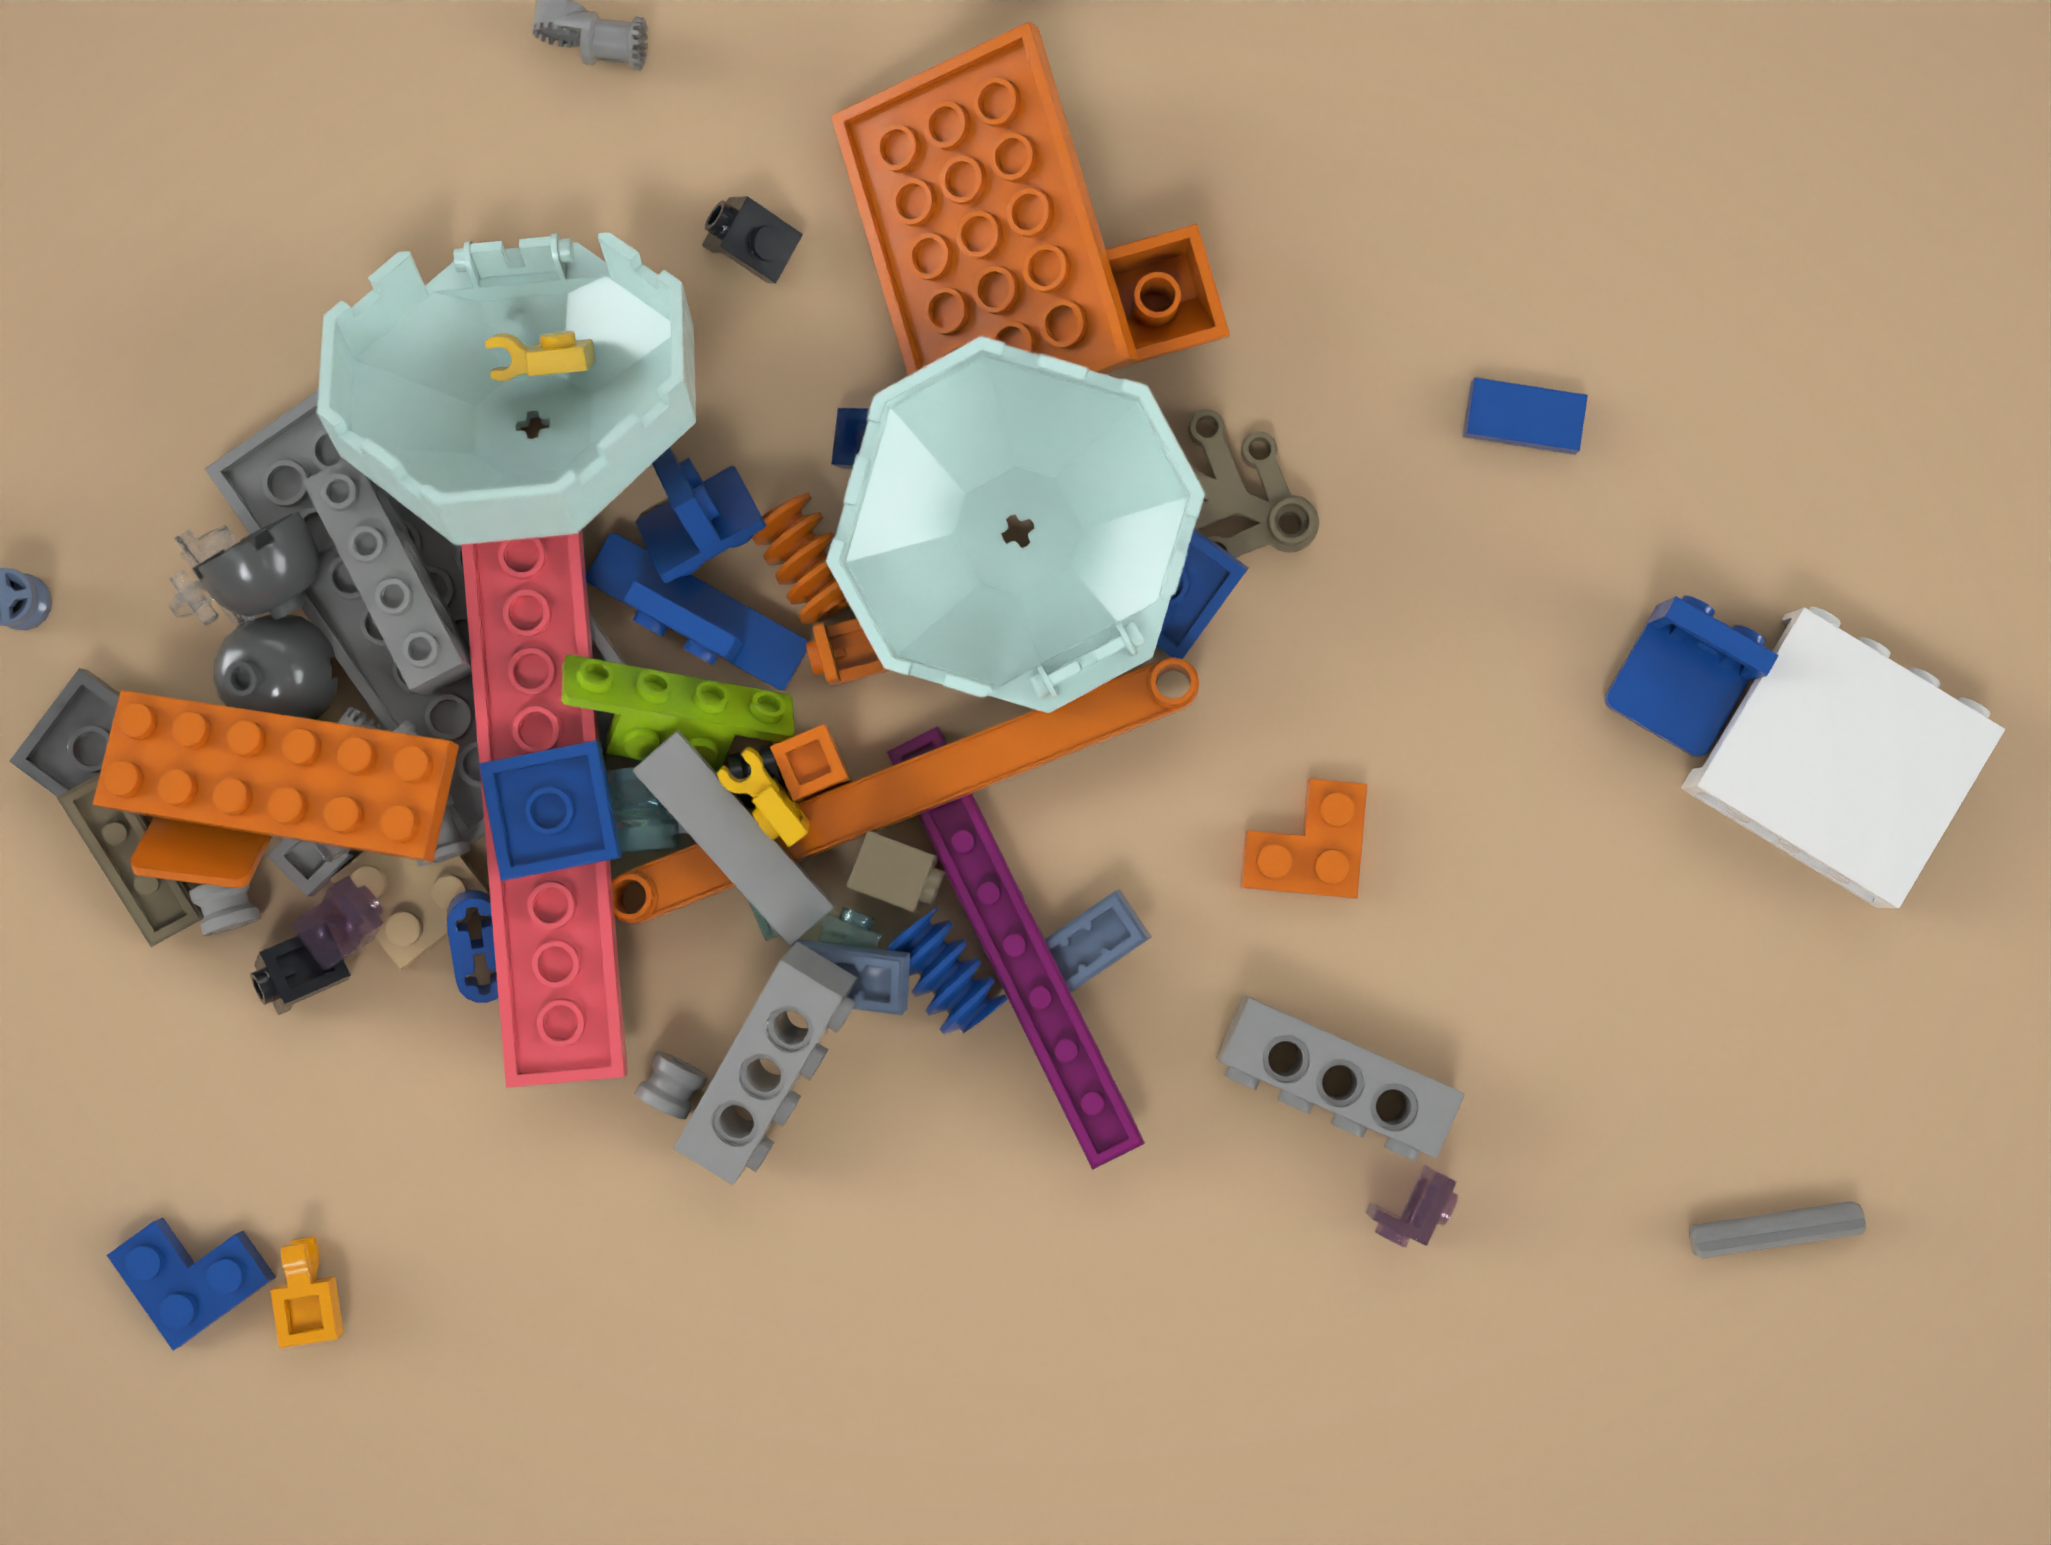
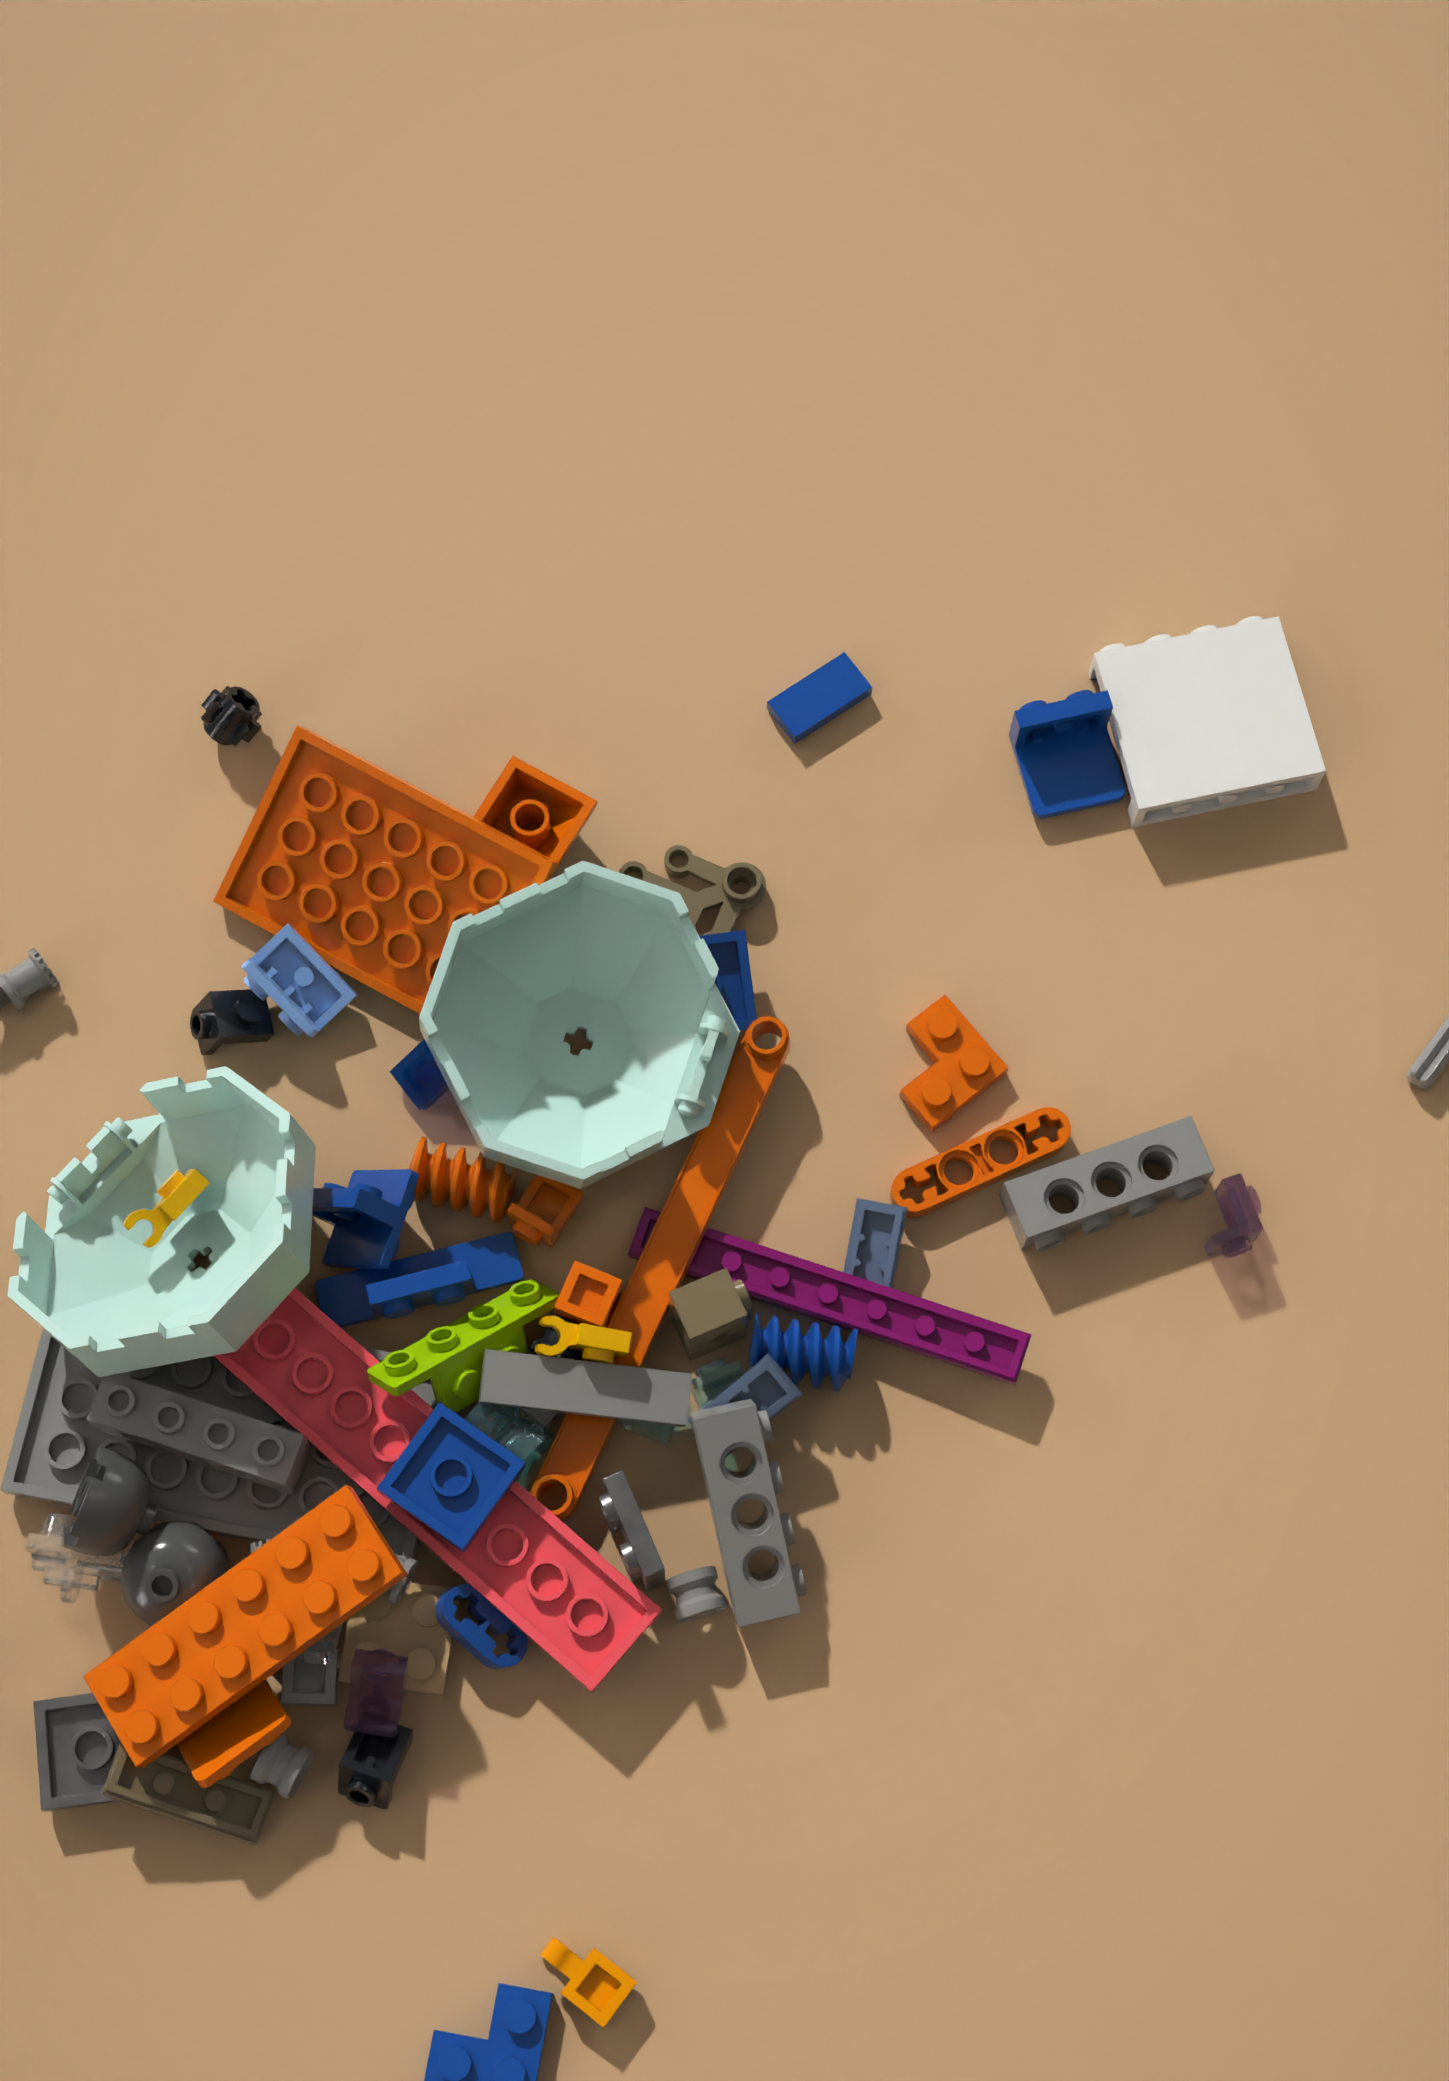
camera: 45 degrees left, 15 degrees down
(668, 973) = (624, 1515): none -> flat silver plate
(830, 257) = (298, 982): none -> light blue bracket
(1255, 948) = (983, 1167): none -> orange beam

